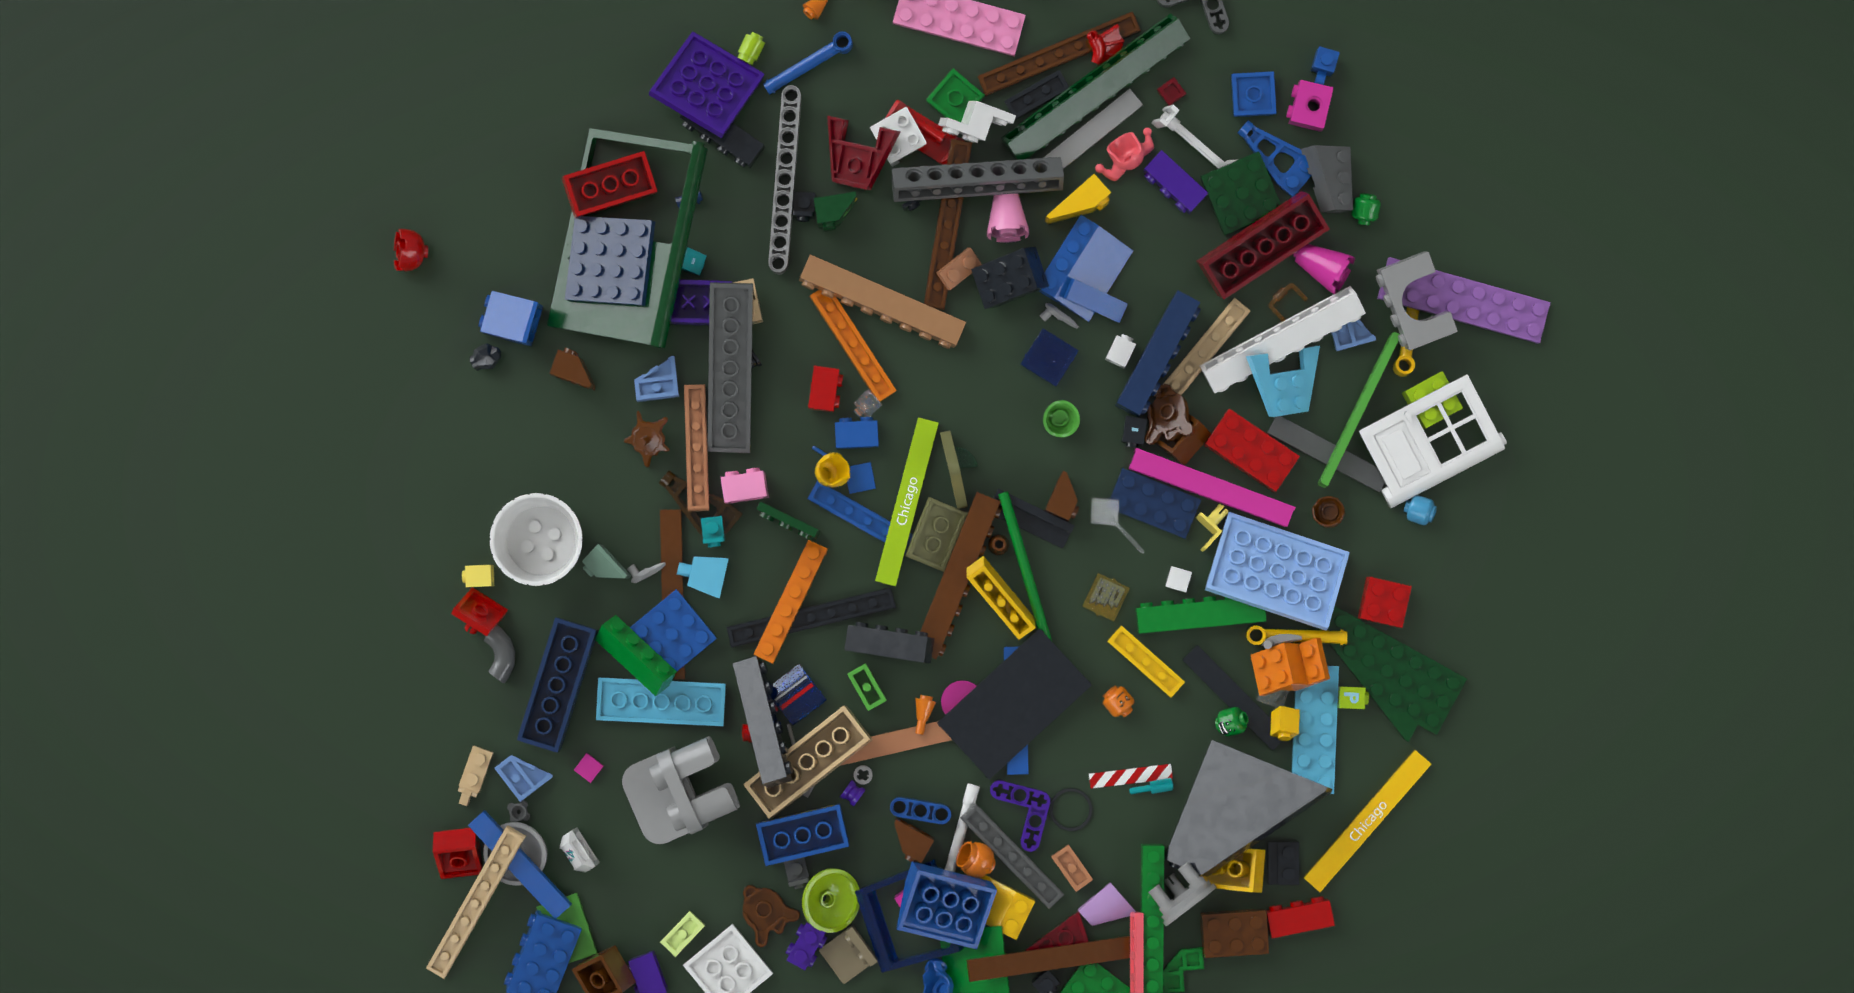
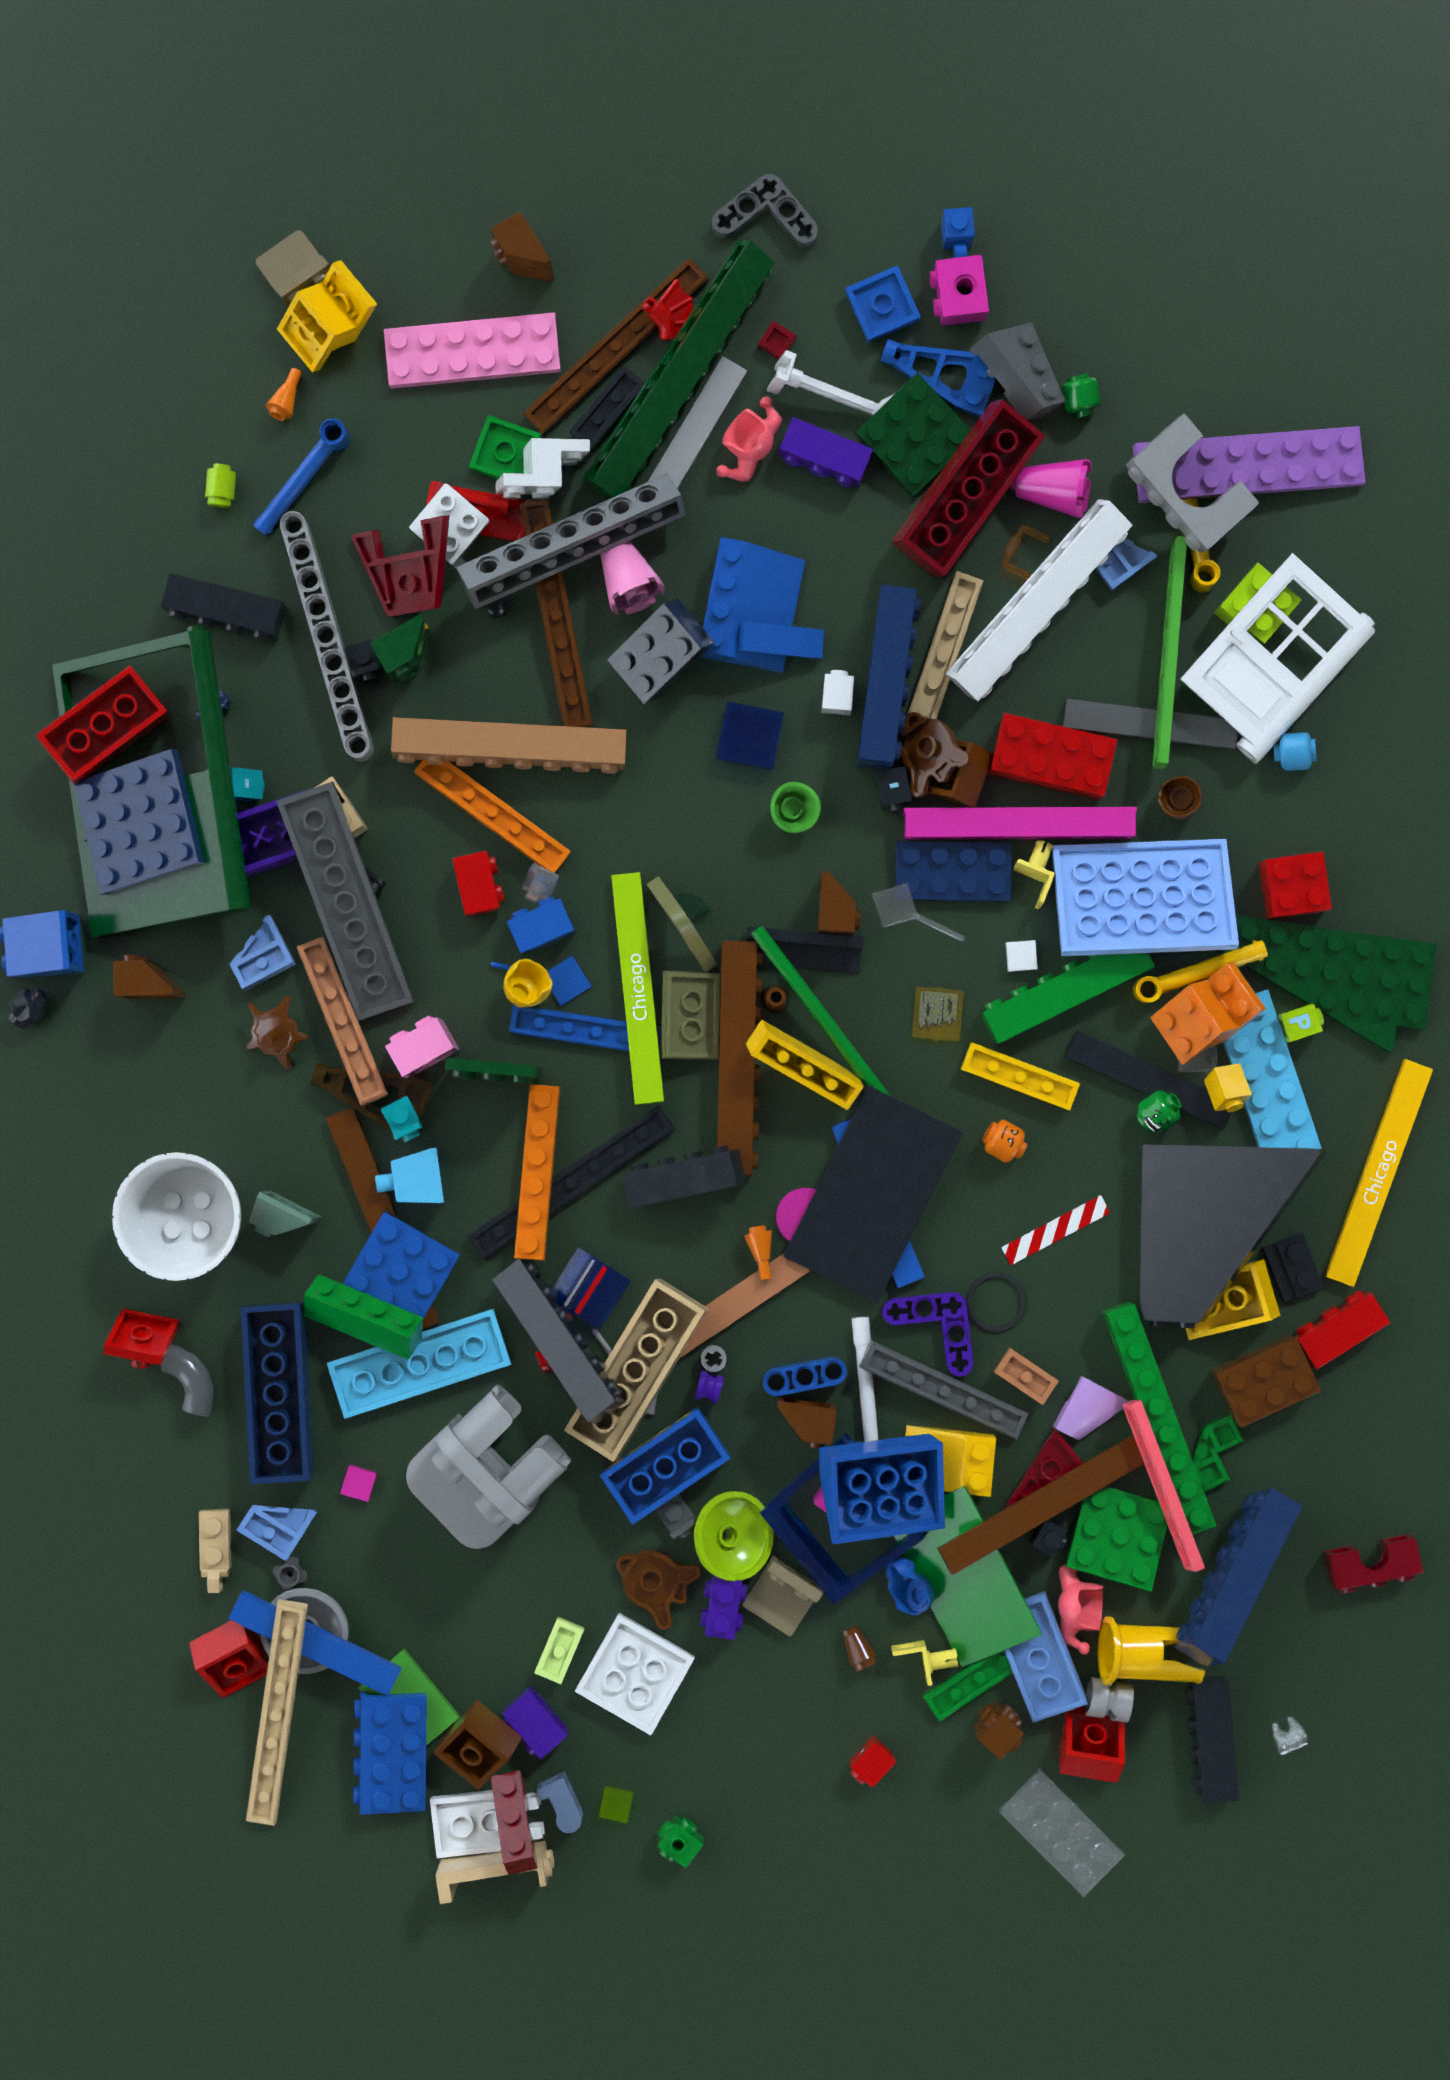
camera: 20 degrees left, 0 degrees up
(478, 576) = (124, 1290): light yellow brick -> none
(578, 851) = (385, 1595): white slope -> none
(639, 576) = (337, 1207): light grey bar -> none
(706, 84) = (179, 551): dark purple plate -> none
(867, 687) = (676, 1244): bright green brick -> none
(958, 268) = (590, 666): nougat plate -> none
(975, 859) = (899, 1412): orange piece -> none
(1052, 310) = (731, 674): light grey bar -> none
(1083, 200) = (718, 517): yellow slope -> none
(1155, 786) = (1092, 1232): teal axle -> none
(1184, 897) = (1186, 1361): light grey piece -> none
(1280, 638) = (1181, 982): light grey bar -> none
(1288, 390) = (1067, 664): medium azure wing -> none

